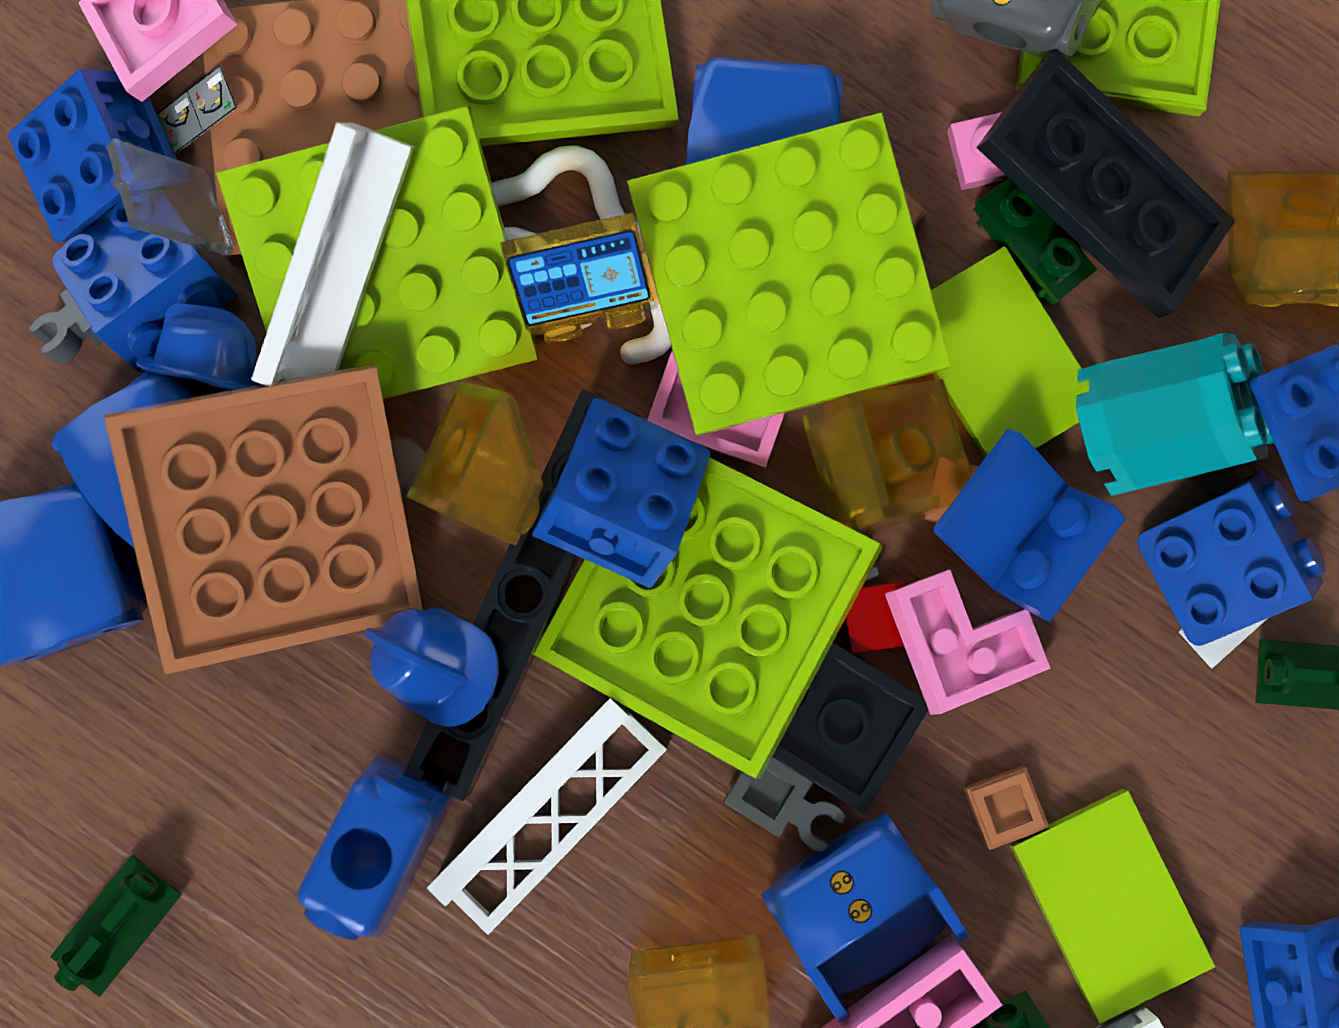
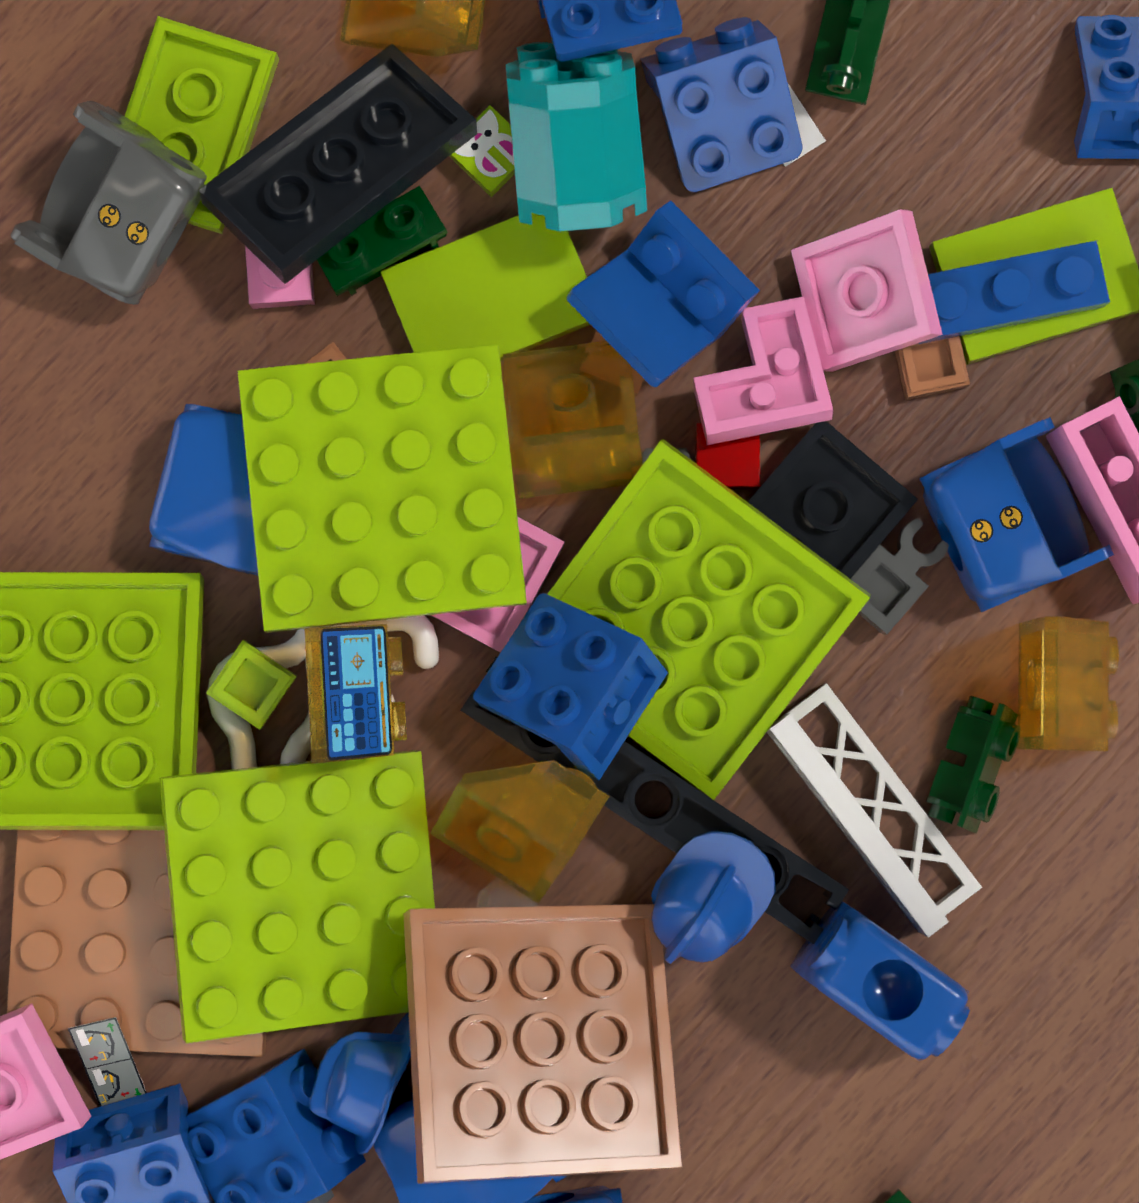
camera: 85 degrees left, 0 degrees up
(169, 198) = (199, 1098): clear piece -> none
(334, 254) = (292, 932): white fence -> none
(576, 184) = (251, 684): none -> lime tile
(584, 910) = (986, 743): none -> dark green hinge
(1067, 731) = (867, 290): none -> bright pink plate
(1090, 875) = (1019, 290): none -> blue plate
(1141, 331) = (489, 153): none -> tile

